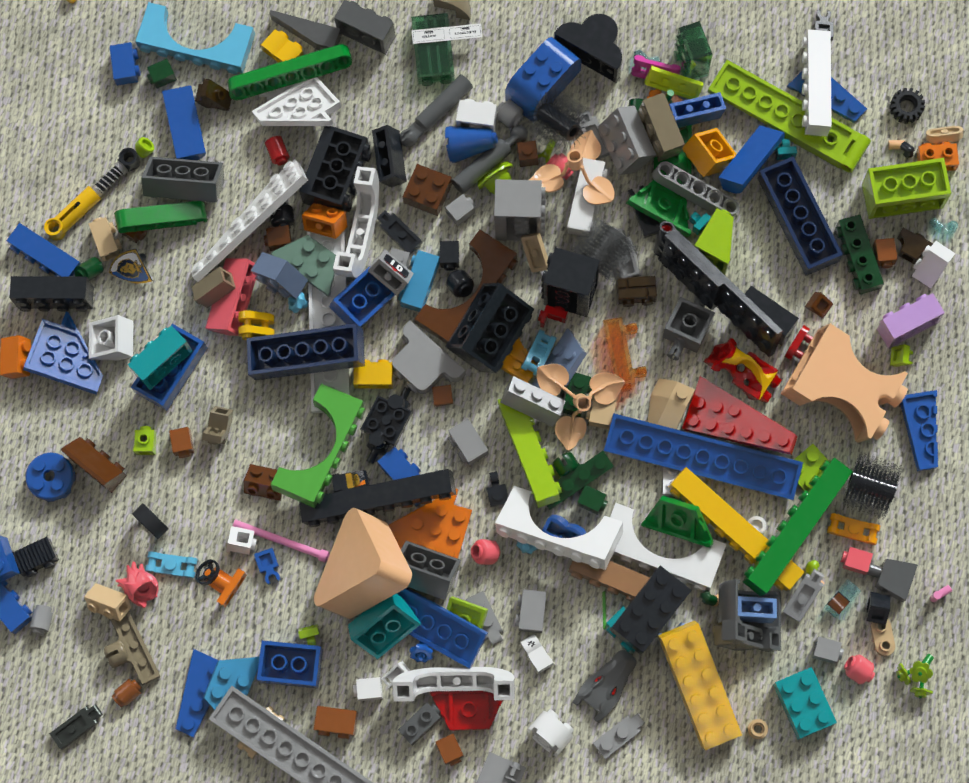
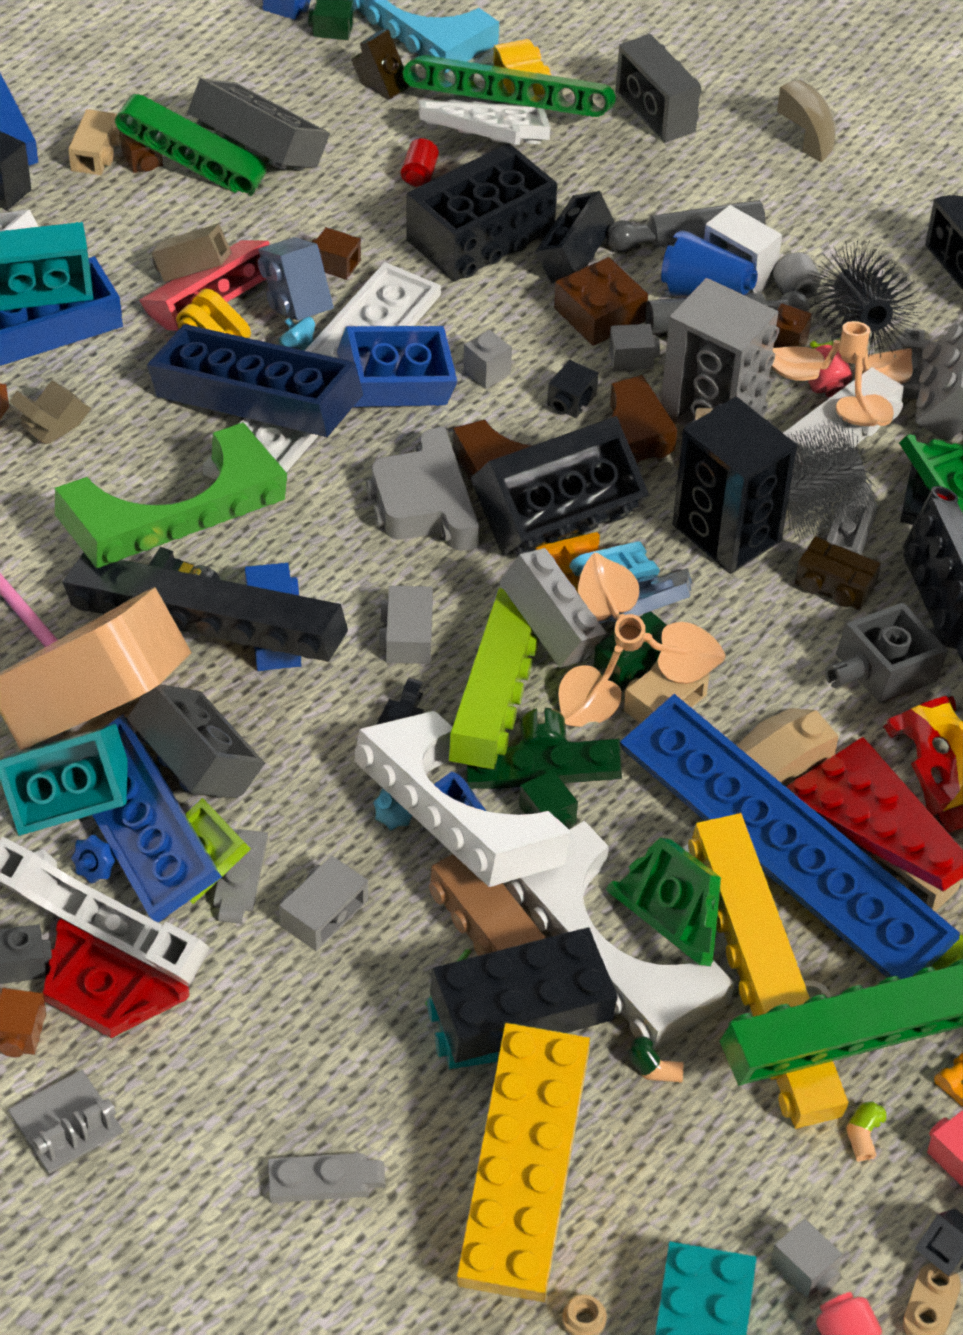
camera: 25 degrees right, 25 degrees down
(89, 268) = (44, 159): dark green brick -> none
(90, 196) = (47, 101): piece -> none
(130, 267) = (98, 182): shield -> none
(144, 147) = (241, 74): lime tile -> none
(184, 123) = (315, 73): blue brick -> none
(258, 482) = (38, 515): reddish brown bracket -> none
(268, 201) = (377, 190): white wing -> none
(283, 216) = (366, 225): black head -> none
(311, 260) = (360, 293): sand green wing -> none
(314, 33) = (572, 60): dark grey slope -> none
(324, 220) = (418, 257): orange brick -> none
(354, 259) = (507, 259): white arch -> none
(374, 375) = (332, 469): yellow brick -> none
(386, 423) = (303, 530): black piece -> none
(390, 272) = (461, 343): light grey brick -> none
(399, 232) = (519, 331): black hinge -> none
(417, 290) = (502, 395): dark azure brick -> none
(433, 59) = (739, 159): clear green brick -> none
(434, 526) = (268, 708): orange wing -> none
(442, 395) = (419, 552): dark orange tile -> none
(446, 33) = (772, 146): white sticker -> none
(460, 283) = (557, 421): black head -> none
(485, 552) = (314, 777): coral head -> none
(536, 654) = (280, 970): white leg -> none
(544, 70) = (901, 226): blue brick -> none
(551, 732) = (207, 1090): white brick -> none
(556, 313) = (676, 534): red bracket -> none
(606, 685) = (359, 1088): dark grey animal -> none
(618, 351) = (747, 635): clear orange brick -> none
(740, 635) = (681, 1118): dark grey piece -> none
(757, 609) = (712, 1101): medium blue brick -> none
(804, 595) = (823, 1147): light grey hinge -> none
(842, 598) = (893, 1193): leg -> none

